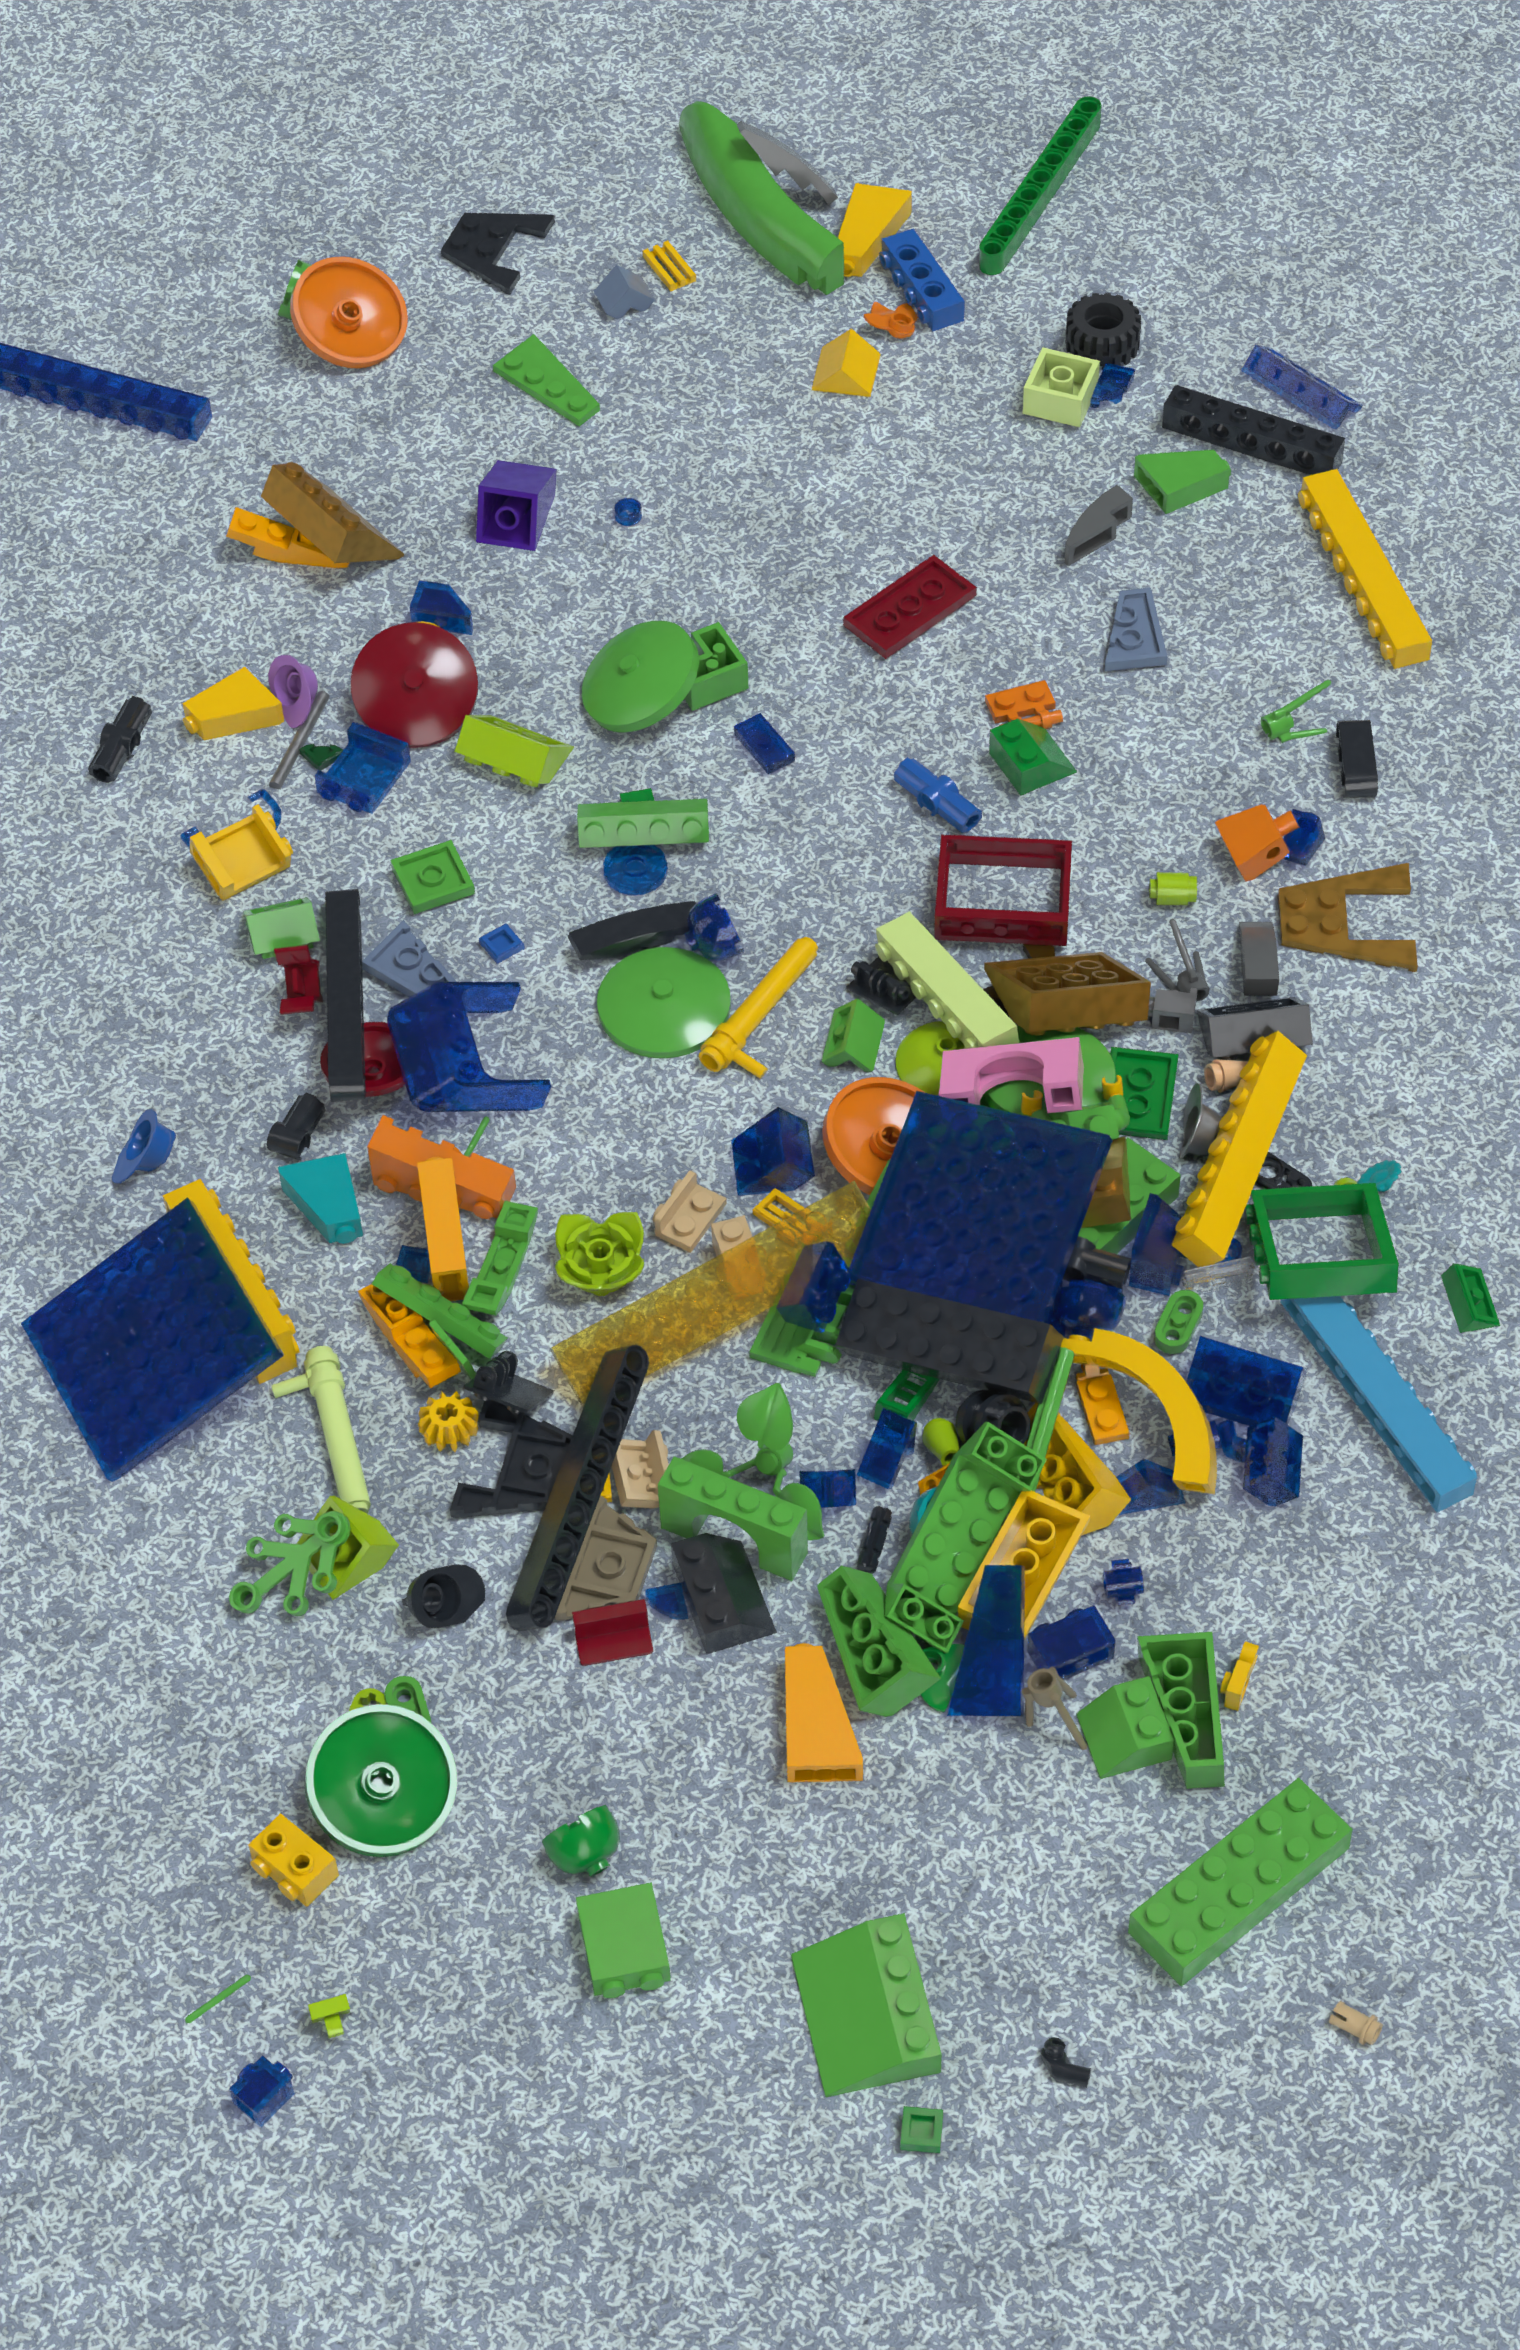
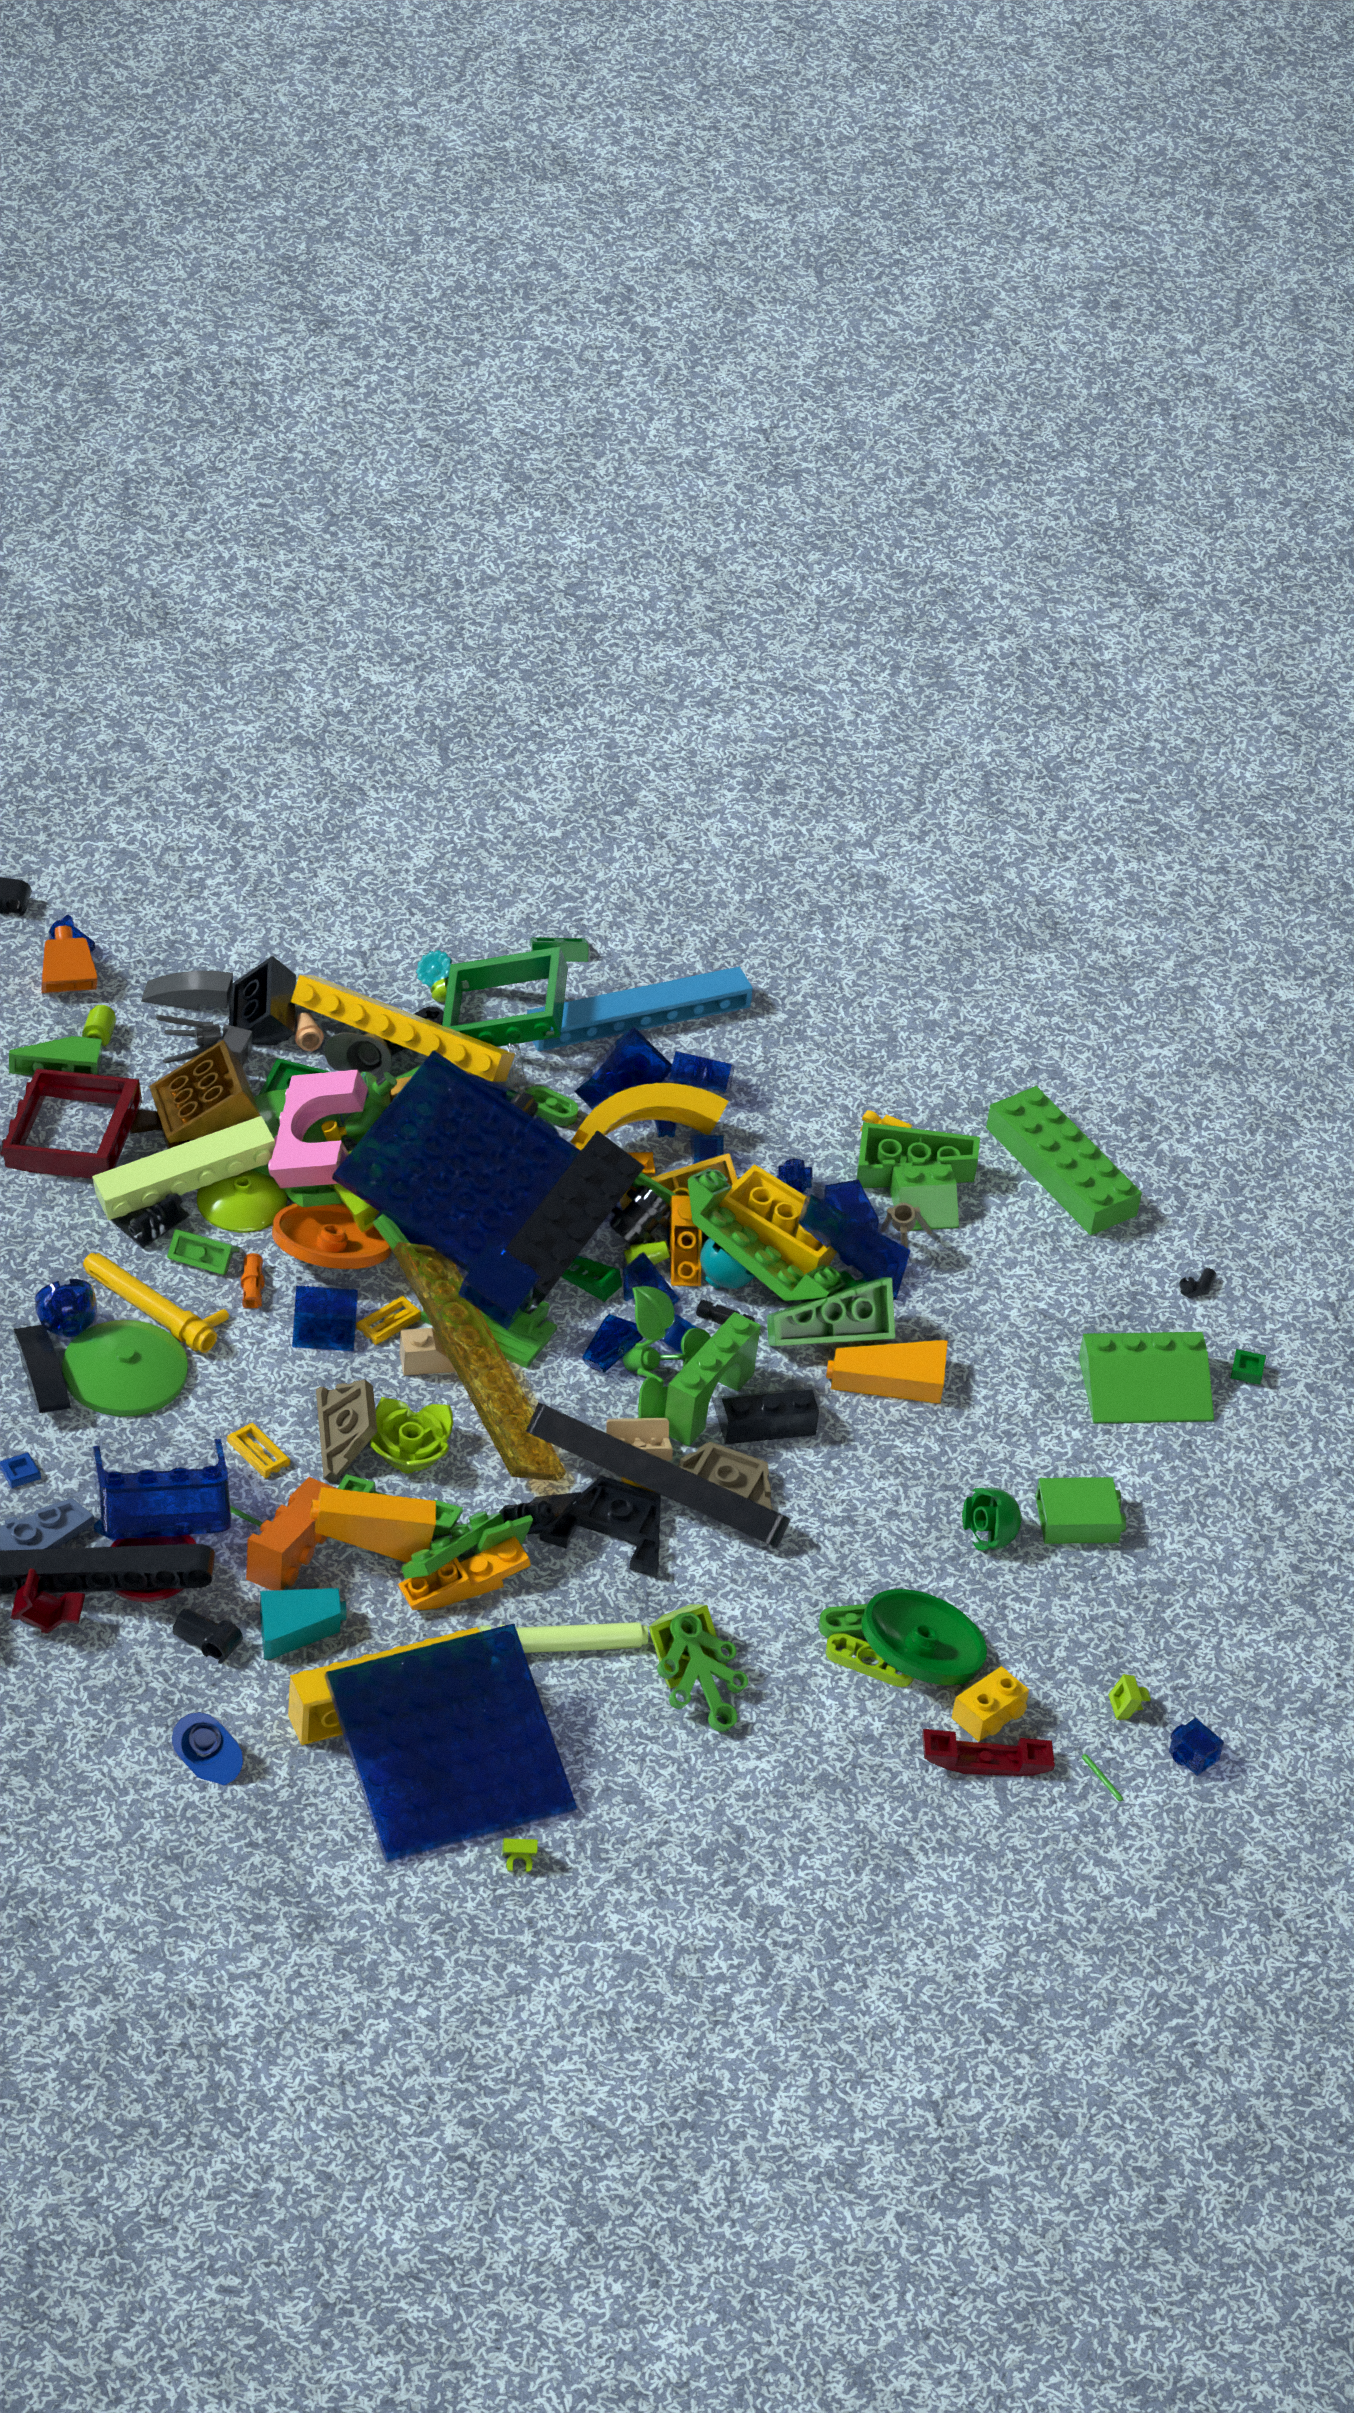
camera: 90 degrees left, 10 degrees down
(40, 1432) = (519, 1849): none -> lime tile
(225, 1863) = (977, 1758): none -> dark red slope
(416, 1262) = (380, 1572): clear blue tile -> none
(447, 1590) = (743, 1588): black piece -> none
(448, 1421) = (563, 1561): yellow gear -> none
(551, 1151) = (250, 1457): none -> yellow tile
(597, 1196) = (345, 1424): none -> dark tan wing
(612, 1632) = (793, 1485): dark red panel -> none
(668, 1600) = (764, 1446): clear blue tile -> none
(687, 1213) = (383, 1382): tan bracket -> none
(792, 1090) = (252, 1281): none -> orange pin
(813, 1429) = (611, 1343): none -> clear blue wing
(1110, 868) = (63, 1054): none -> bright green slope
(1316, 916) = (153, 954): pearl gold wing -> none
(1357, 2023) = (1181, 1123): tan pin -> none

